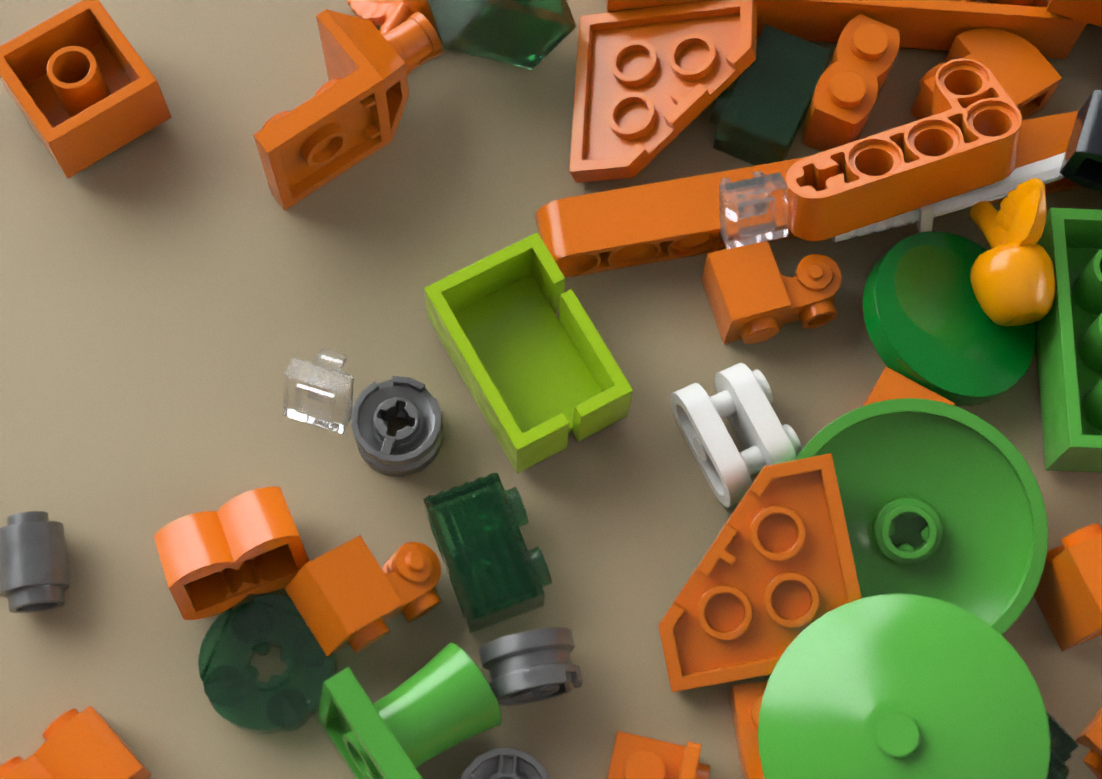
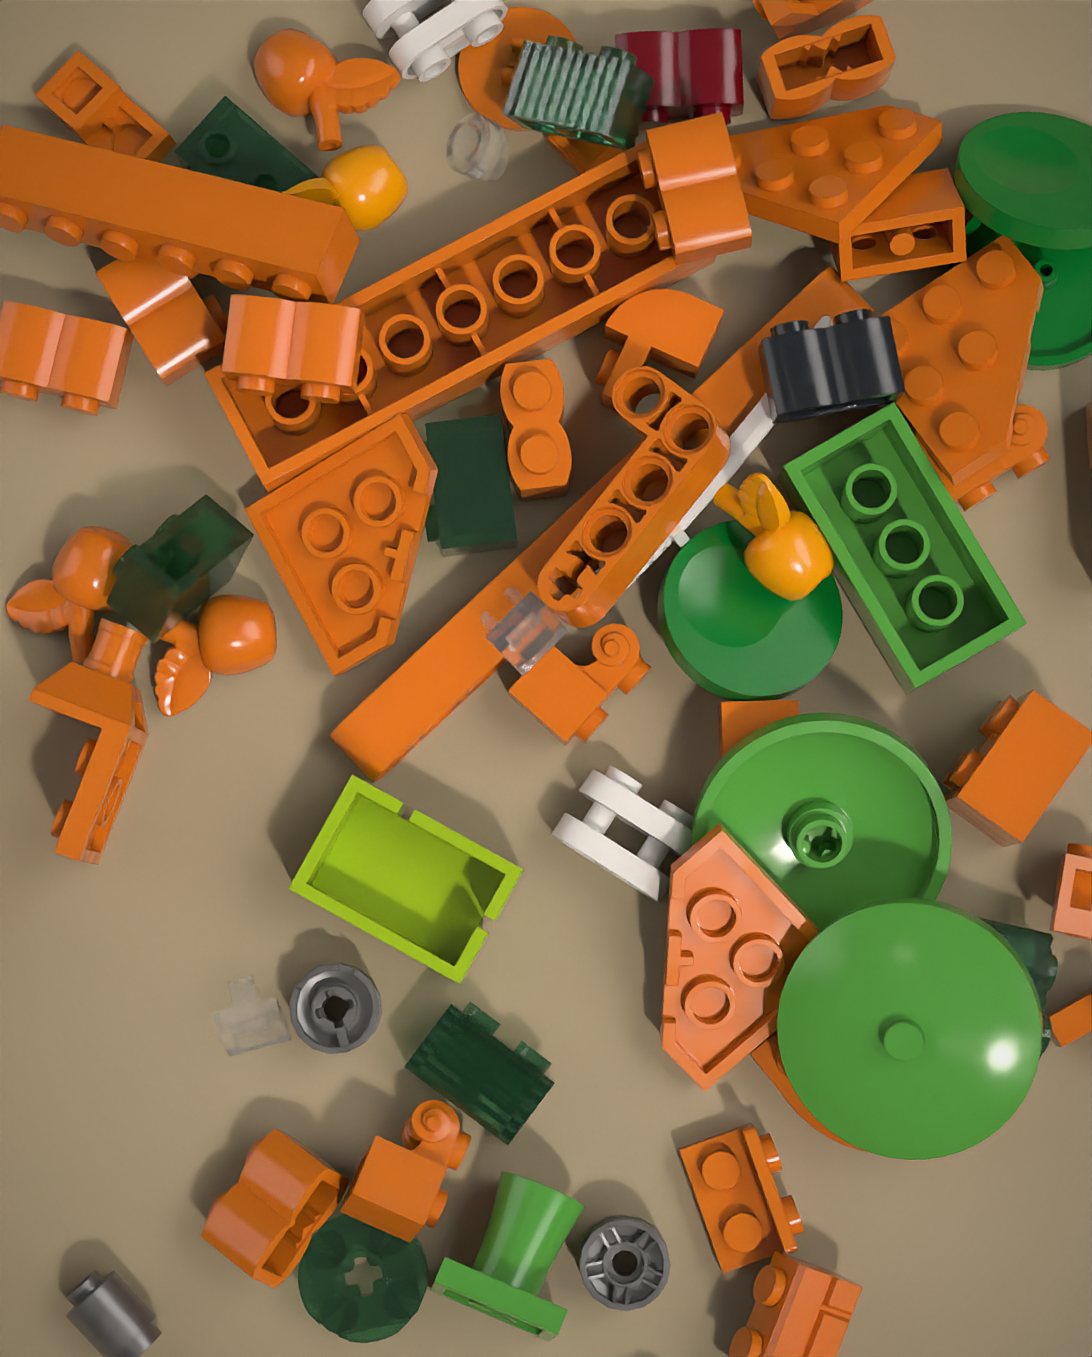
camera: 25 degrees left, 15 degrees up
(503, 99) = (230, 639): none -> orange piece
(531, 665) = (579, 1147): flat silver wheel -> none

